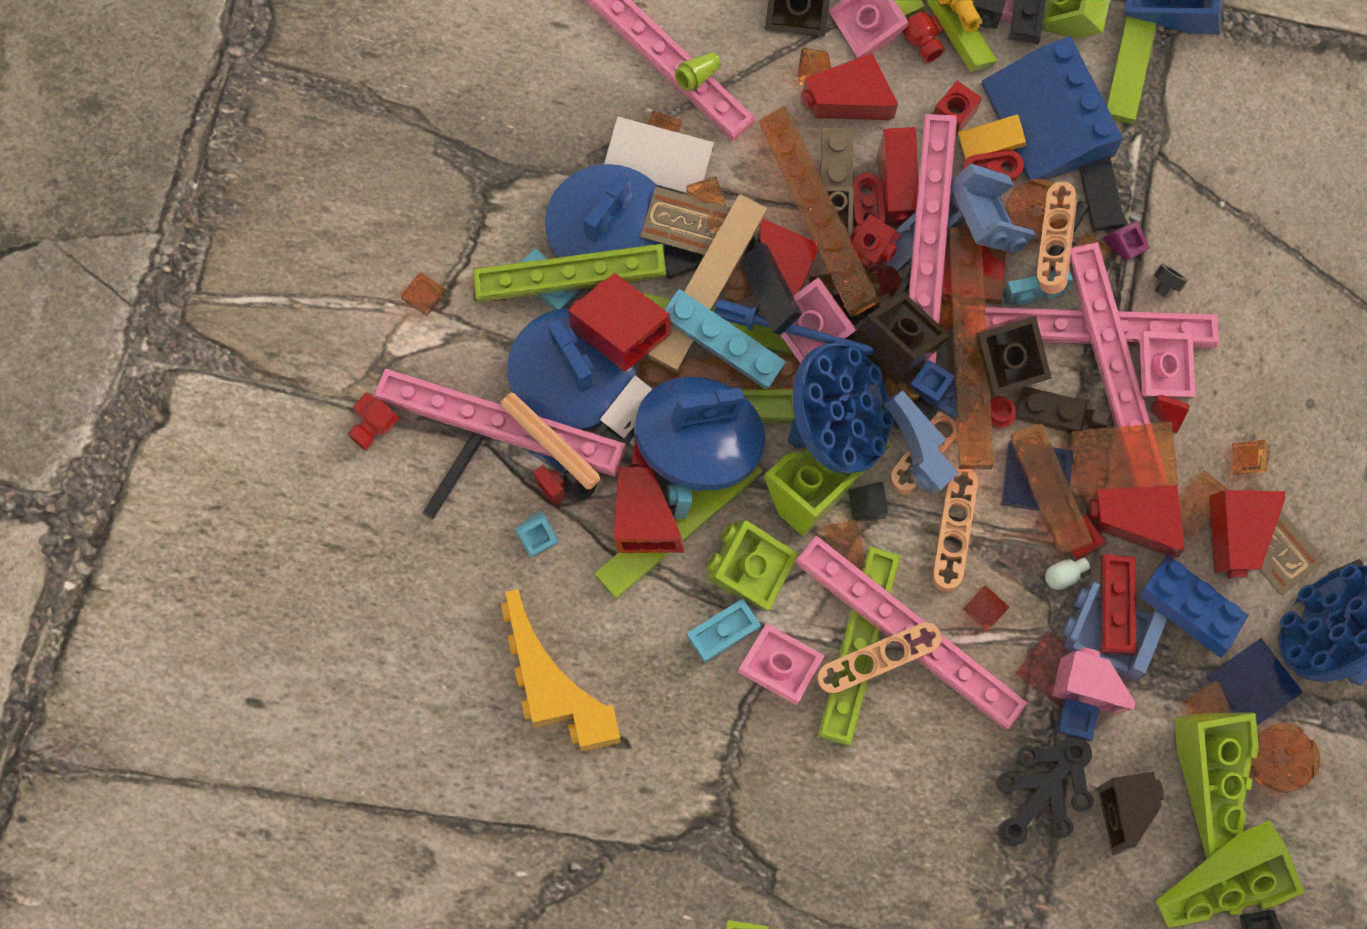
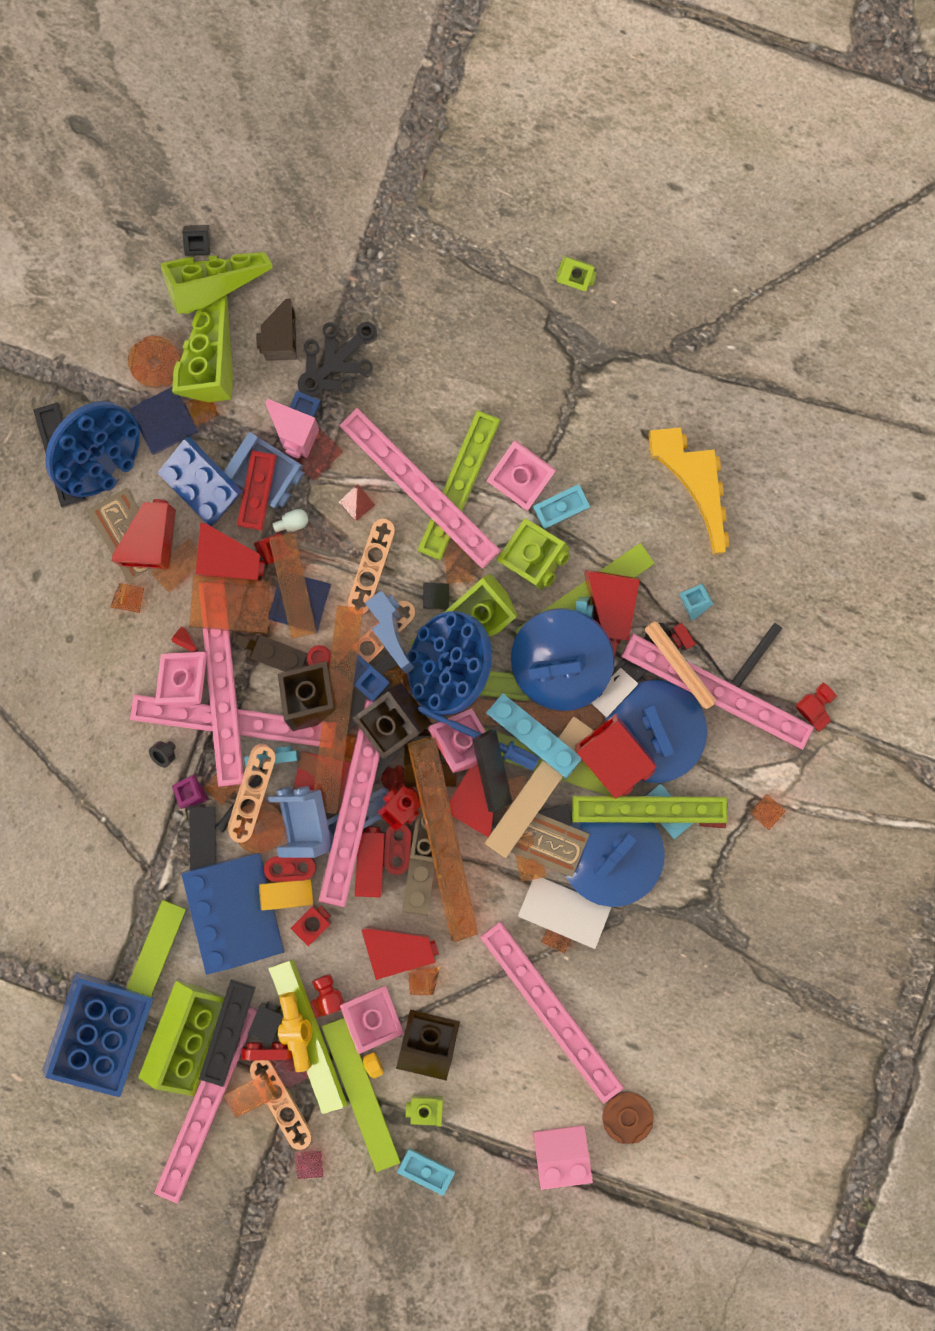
camera: 165 degrees left, 15 degrees up
(696, 71) = (524, 981): lime cone -> none
(880, 661) = (449, 472): light nougat beam -> none

